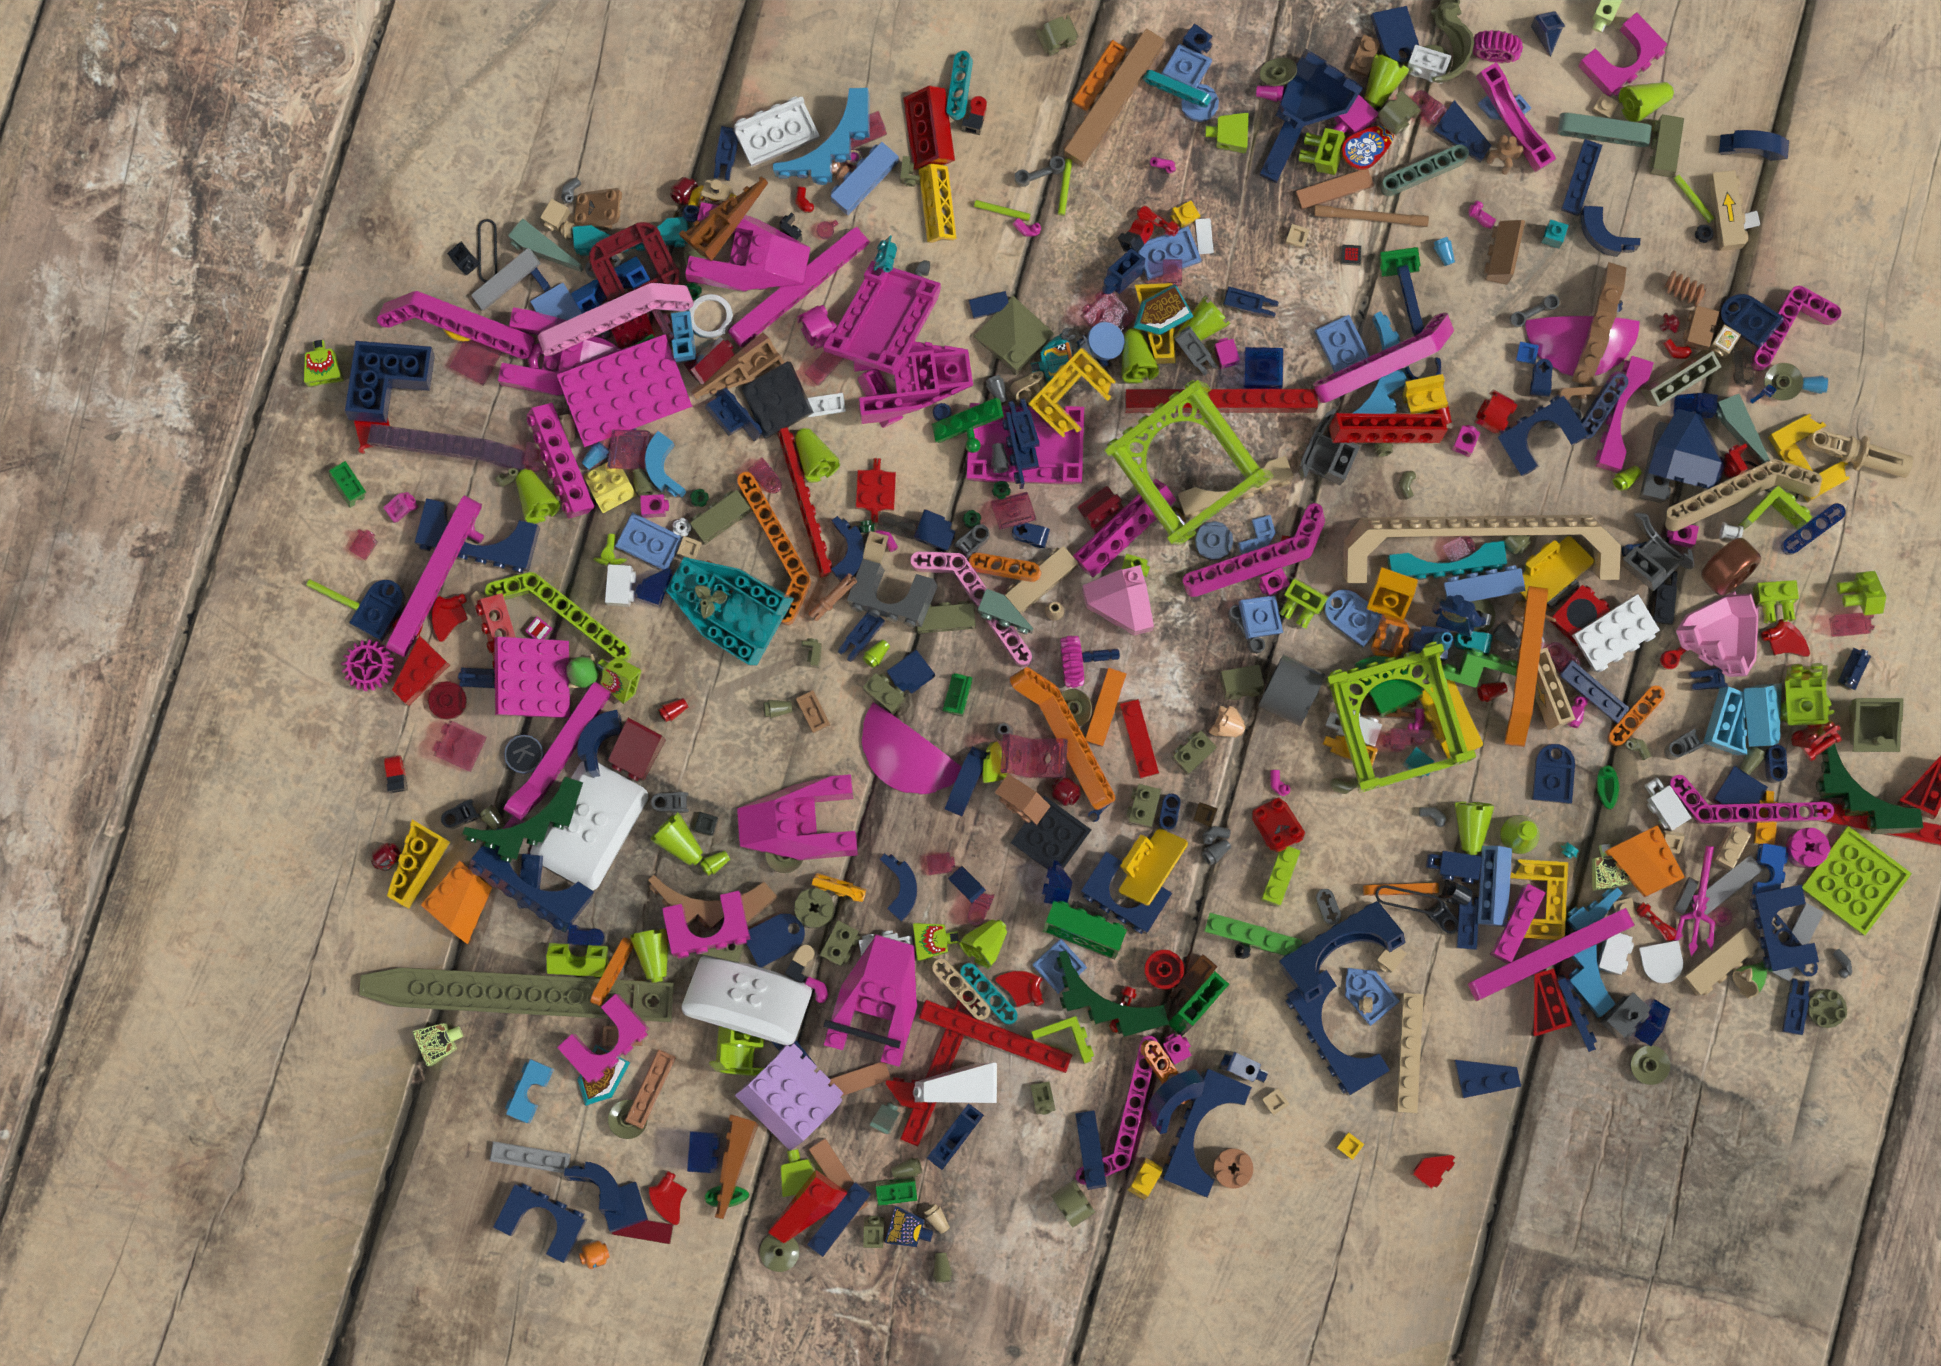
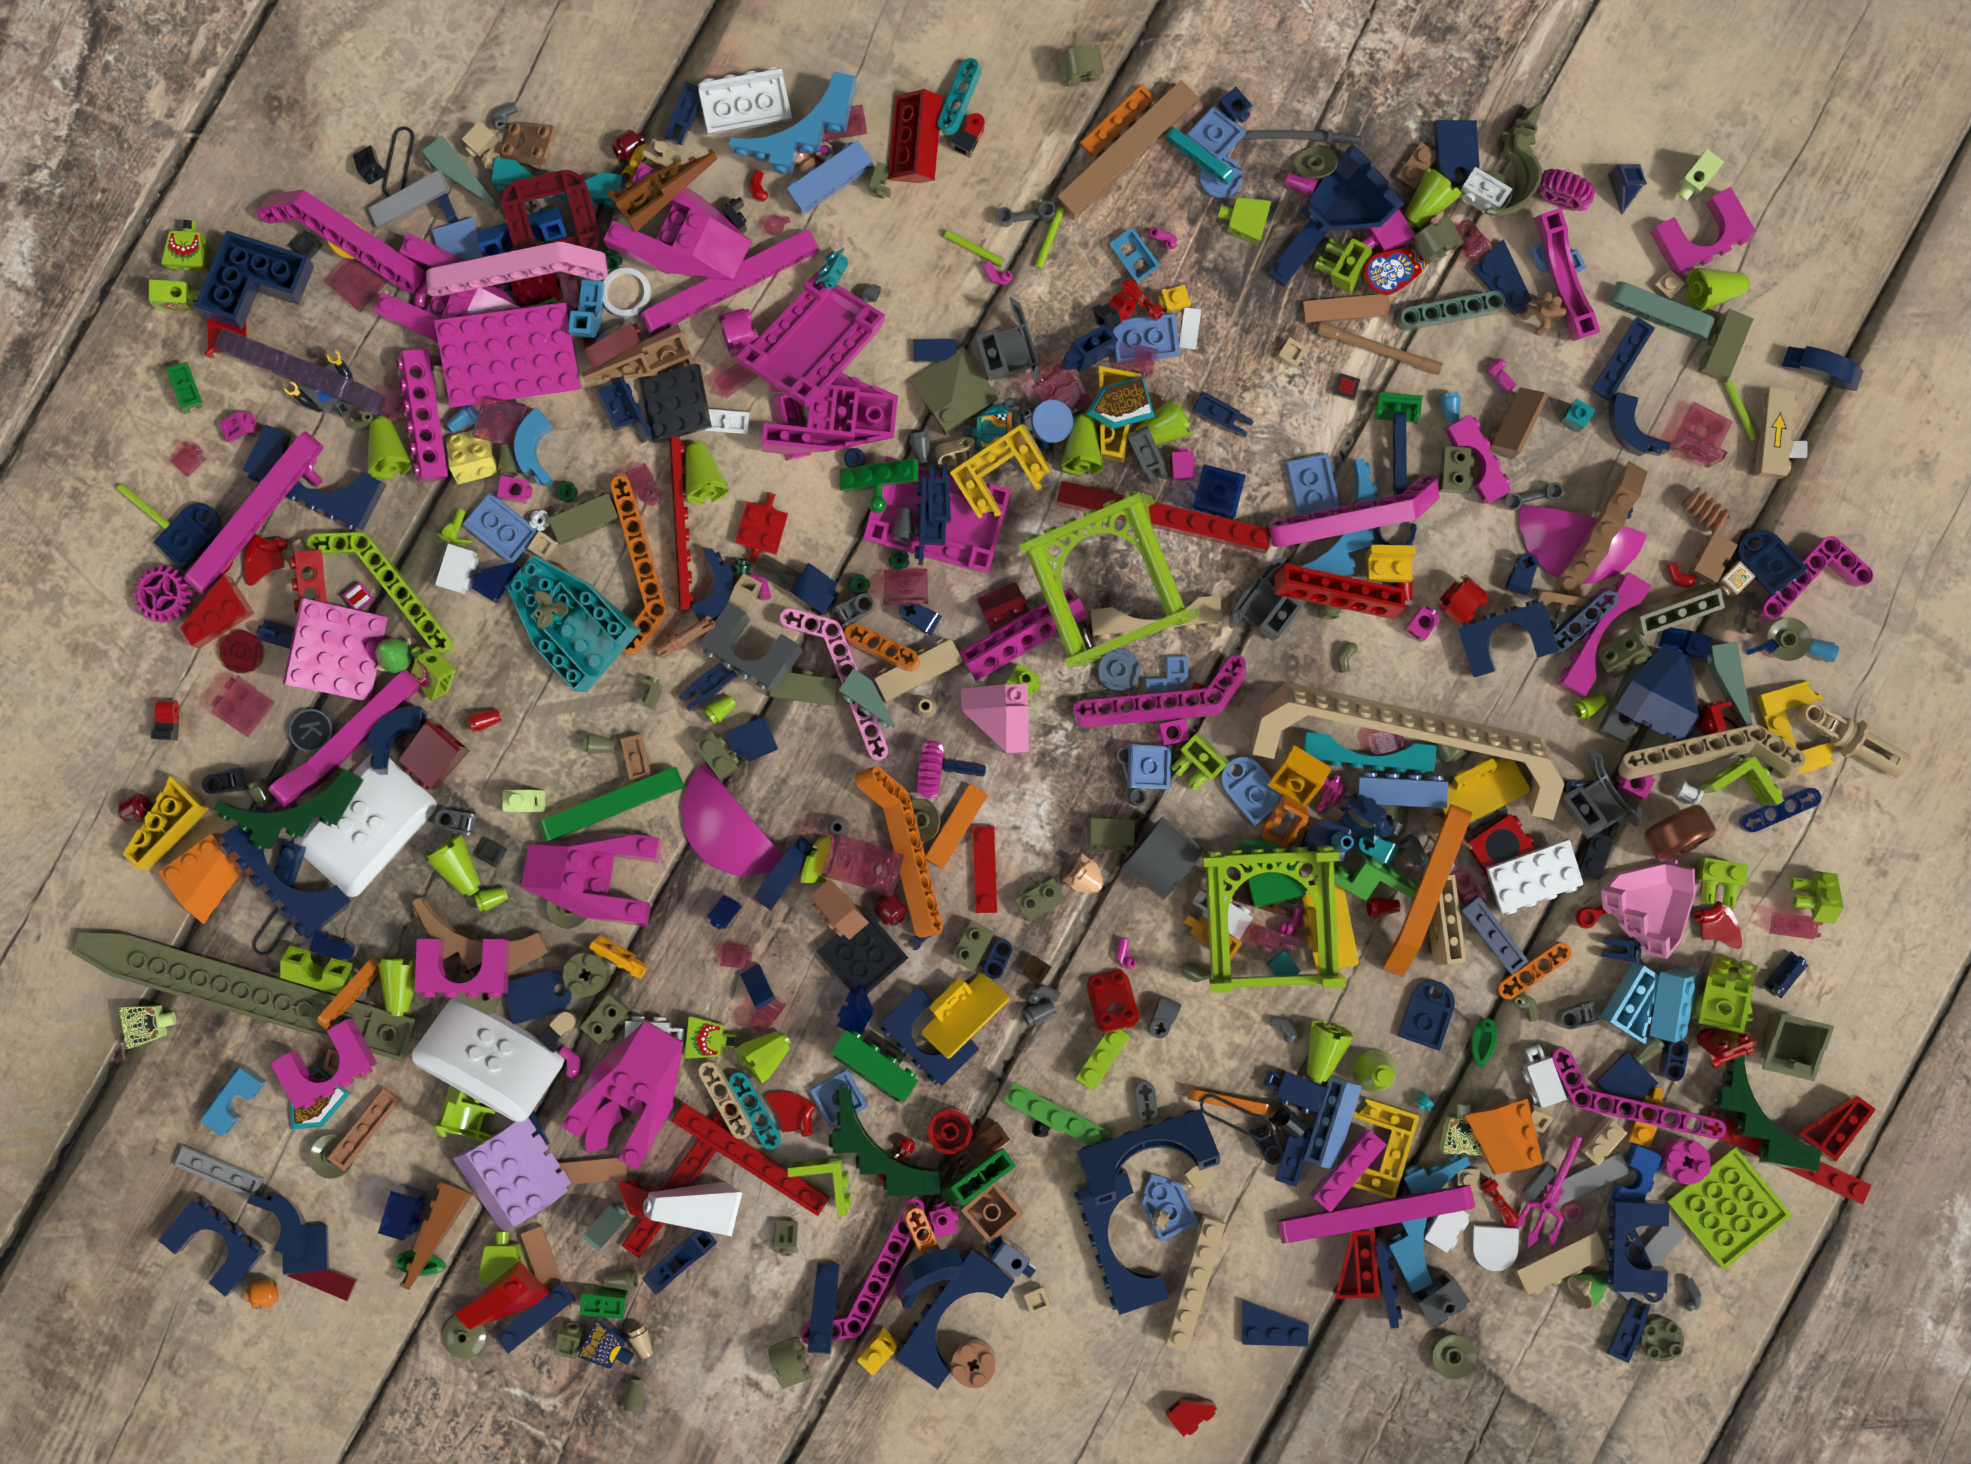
camera: 10 degrees right, 5 degrees up
(313, 407) = (164, 295): none -> lime torso
(424, 337) = (307, 245): none -> pearl dark grey tile
(465, 467) = (318, 400): none -> torso
(521, 934) = (262, 930): none -> black piece
(667, 1197) = (356, 1250): red arm -> none
(690, 213) = (627, 172): dark blue plate -> none
(723, 771) = (523, 801): none -> yellowish green torso
(801, 757) = (611, 804): none -> green beam
(855, 1045) = (600, 1126): none -> dark pink tile
(862, 1034) = (605, 1127): black bar -> none
(907, 896) = (694, 972): dark blue arch -> none
(923, 826) = (725, 912): none -> clear blue slope
(933, 203) = (900, 221): yellow fence -> none
(957, 694) = (798, 775): green hinge -> none
(1054, 289) = (1010, 349): none -> dark grey piece
(1147, 181) = (1141, 252): none -> dark azure piece
(1217, 1030) = (992, 1211): none -> nougat brick
(1262, 51) = (1303, 135): none -> dark grey sword
(1325, 826) = (1166, 1013): none -> dark grey piece
(1350, 1146) = (1106, 1367): yellow plate -> none
(1422, 601) = (1330, 790): none -> dark pink piece
(1462, 303) = (1455, 470): none -> olive brick
(1494, 305) = (1490, 482): none -> dark pink arch
(1527, 353) = (1514, 541): blue plate -> none
(1578, 711) = (1471, 951): dark pink arm -> none
(1644, 425) = (1623, 653): none -> olive brick
(1654, 1024) = (1471, 1316): clear blue slope -> none
(1665, 237) = (1707, 448): none -> clear pink bracket
(1670, 322) = (1680, 544): dark red plant -> none
(1706, 229) = (1748, 453): black plate -> none

